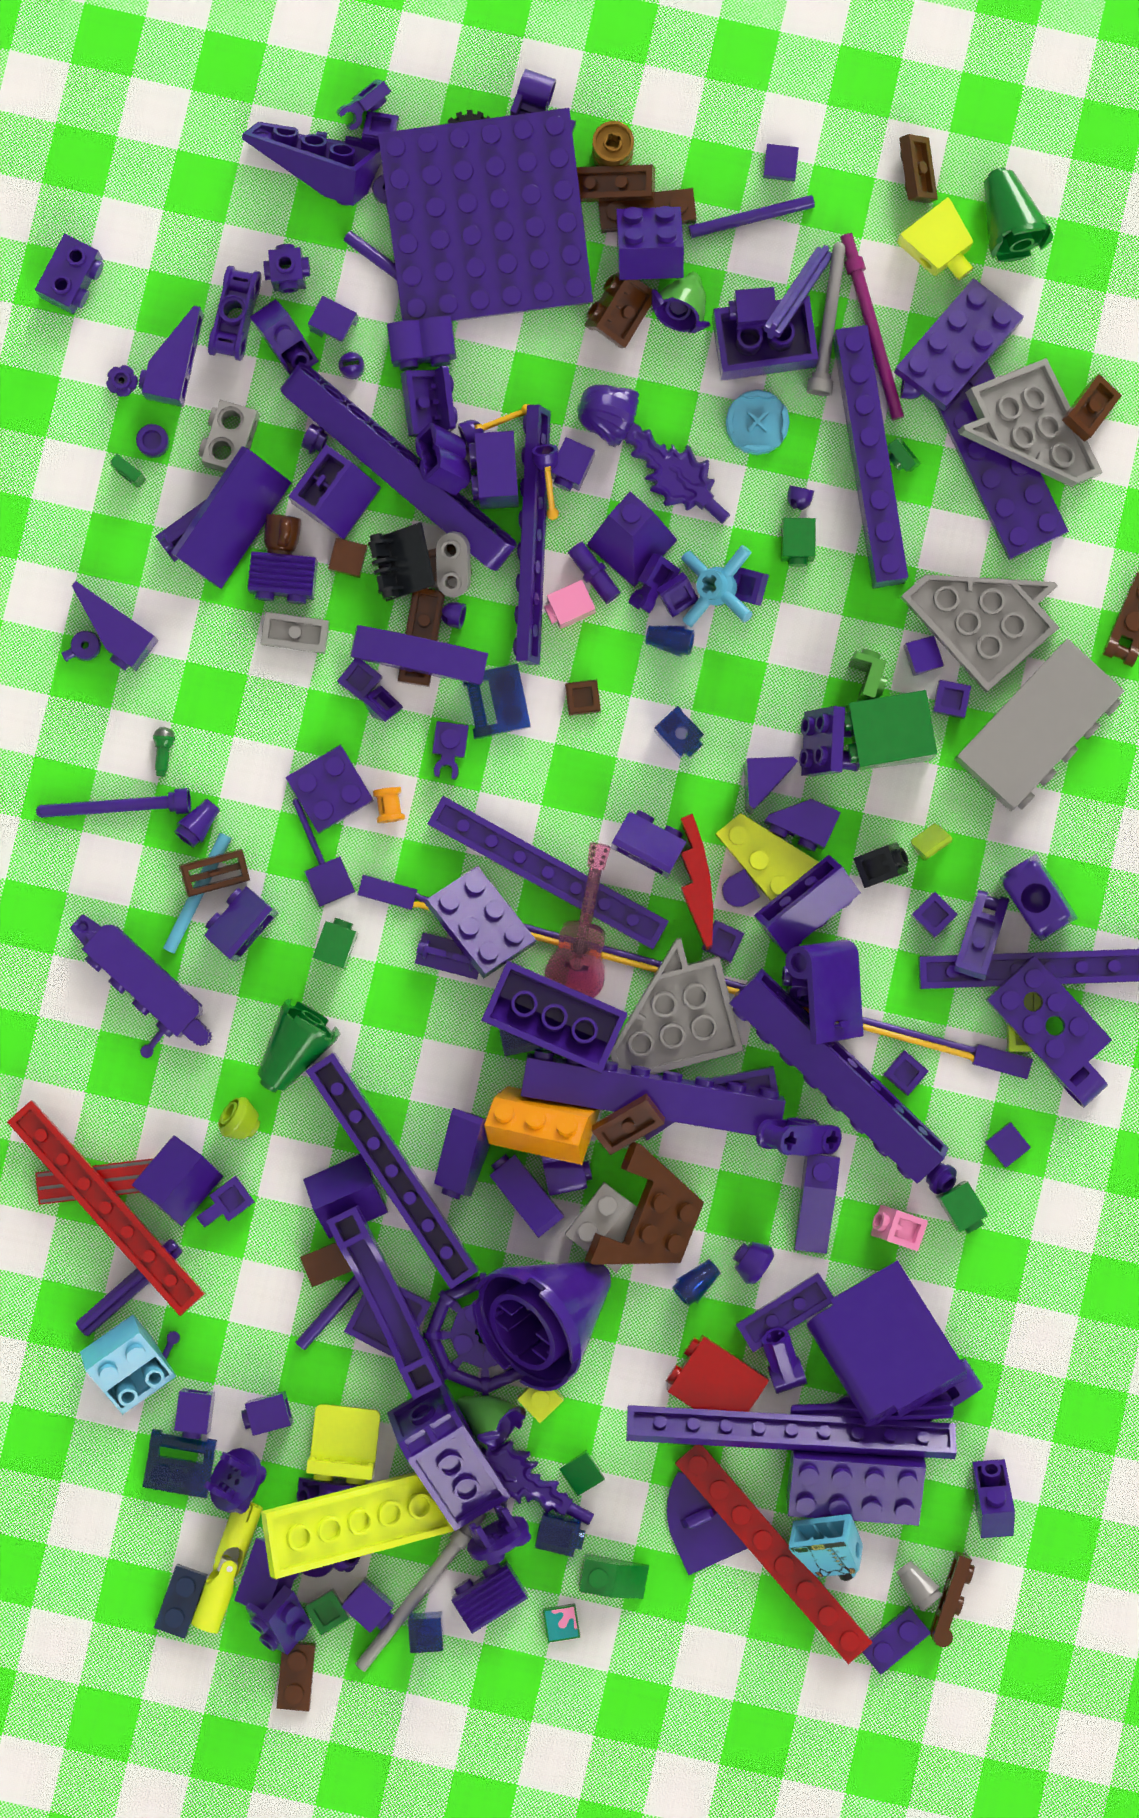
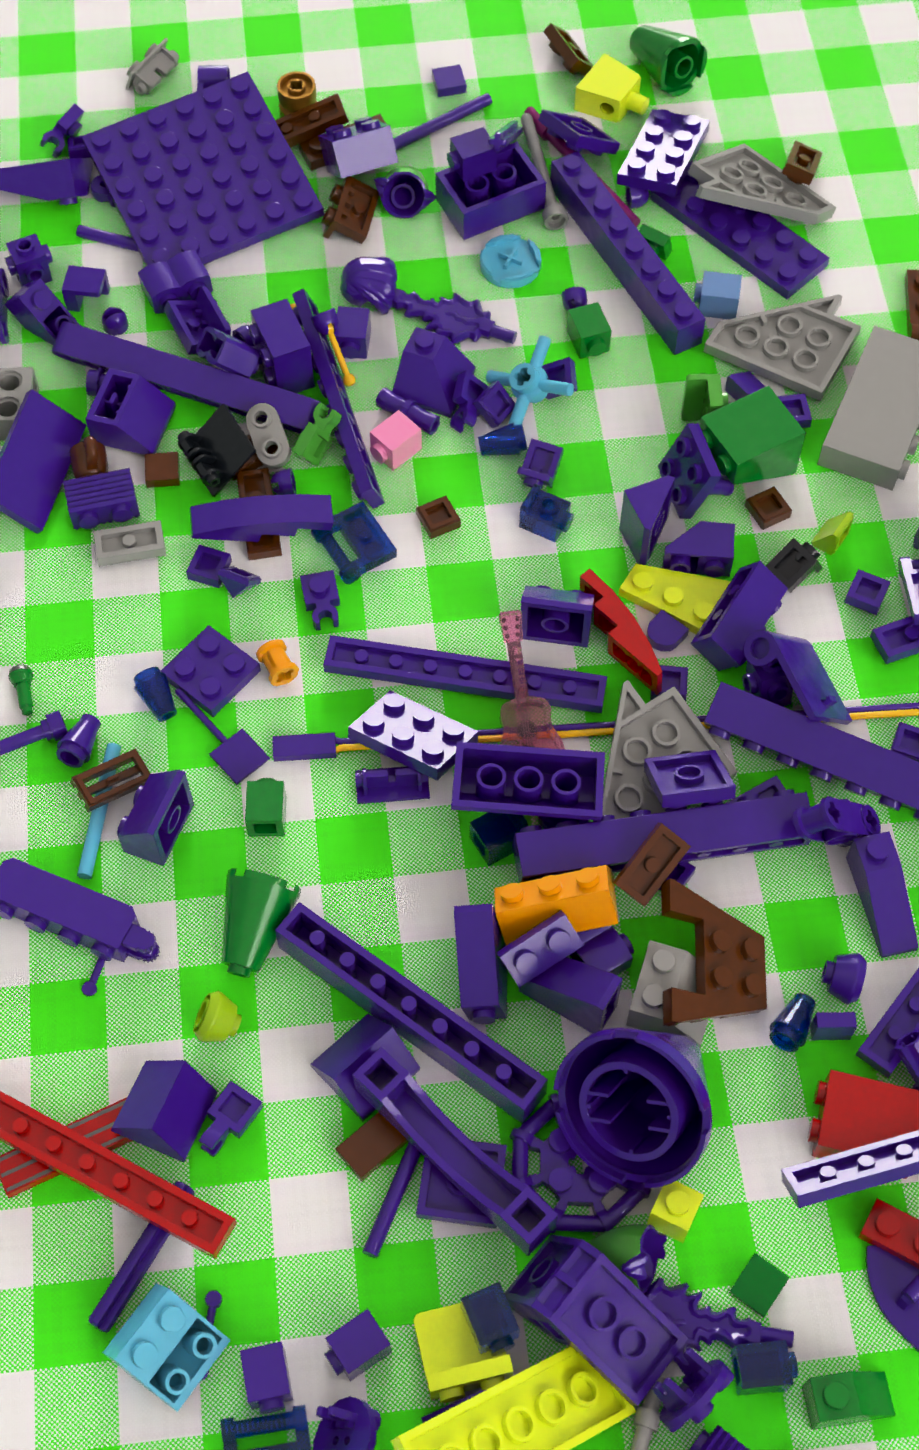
camera: 20 degrees left, 25 degrees down
(275, 799) = (155, 692): none -> clear blue cone
(370, 1433) = (490, 1319): none -> clear blue brick
(468, 47) = (143, 73): none -> light grey hinge
(495, 582) = (316, 437): none -> bright green plate
(510, 1164) = (540, 948): none -> dark purple plate
(692, 1054) = (689, 779): none -> dark purple plate
(693, 679) = (540, 464): none -> dark purple bracket
(725, 1297) = (833, 1026): none -> dark purple tile
(881, 294) = (578, 133): none -> dark purple plate
(886, 793) = (768, 508): none -> reddish brown tile
(939, 540) = (718, 294): none -> medium blue brick

